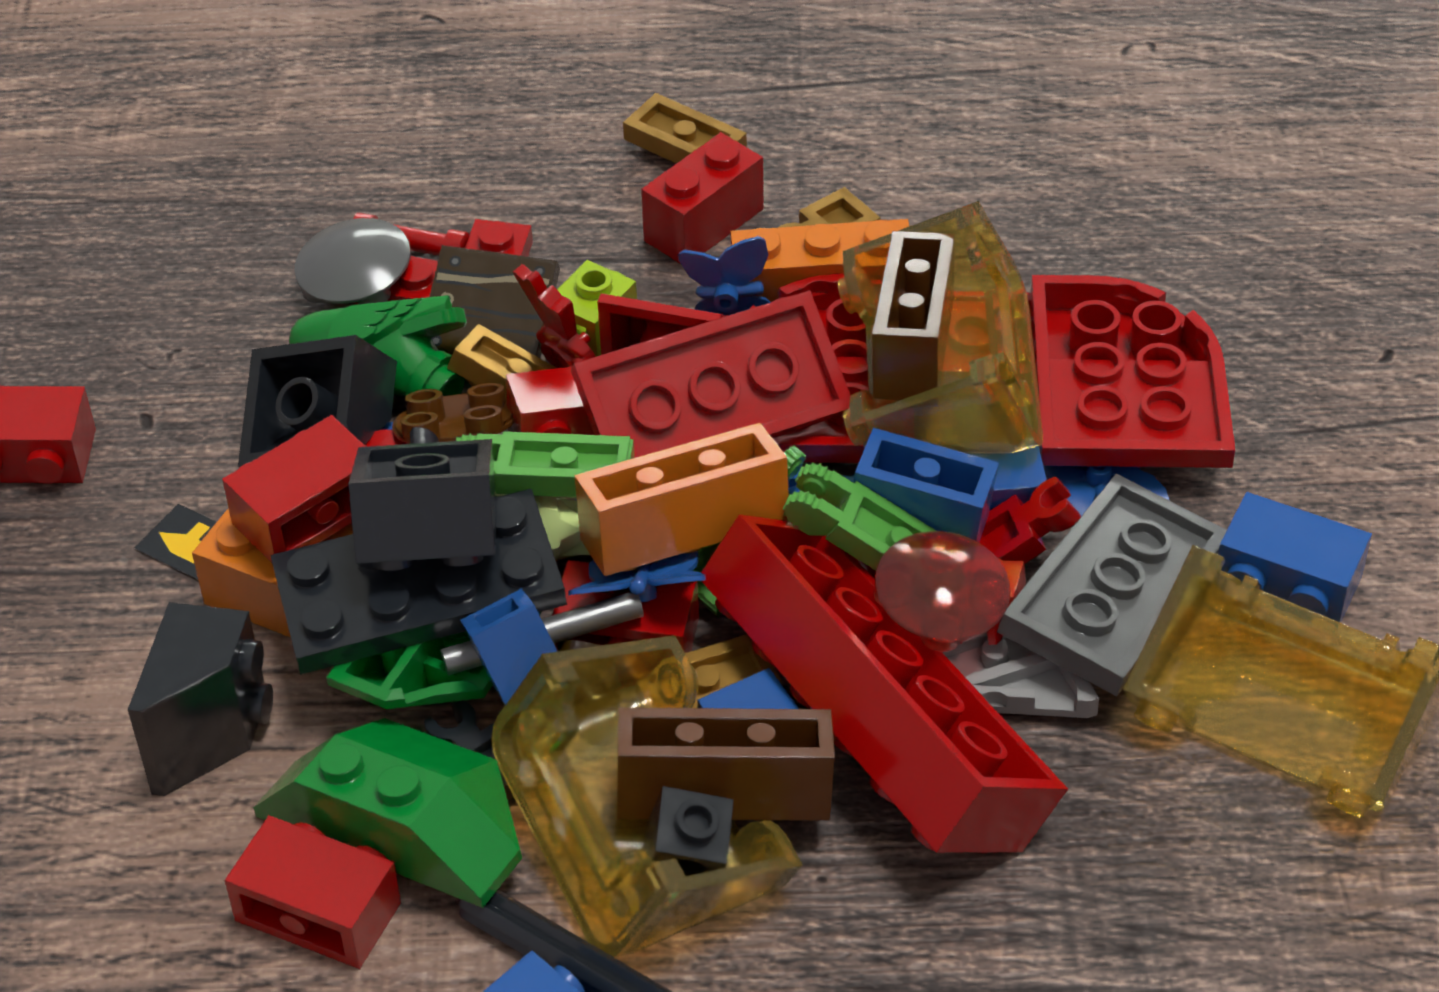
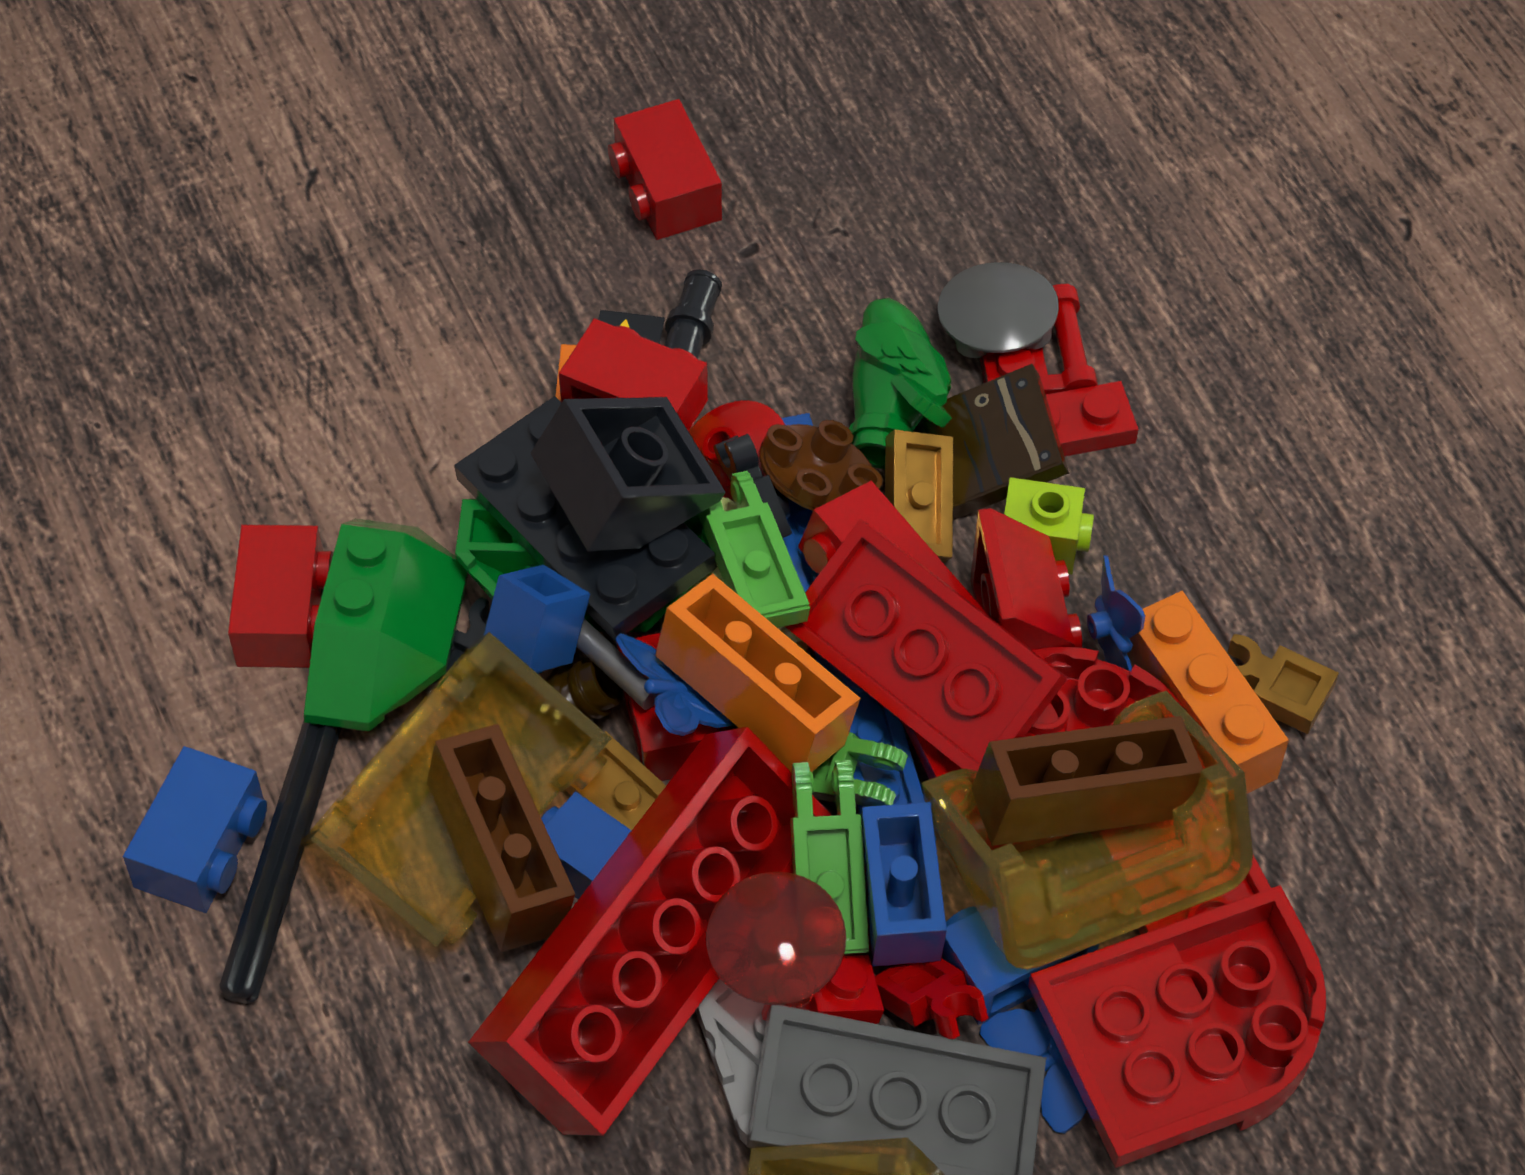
camera: 65 degrees right, 10 degrees up
(194, 470) = (690, 323): none -> black pin
(198, 695) = (412, 416): black slope -> none
(308, 382) = (784, 358): black slope -> none
(559, 335) = (967, 490): red piece -> none
(674, 128) = (1342, 507): pearl gold plate -> none
(690, 829) = (410, 842): black brick -> none
(703, 197) = (1247, 555): red brick -> none

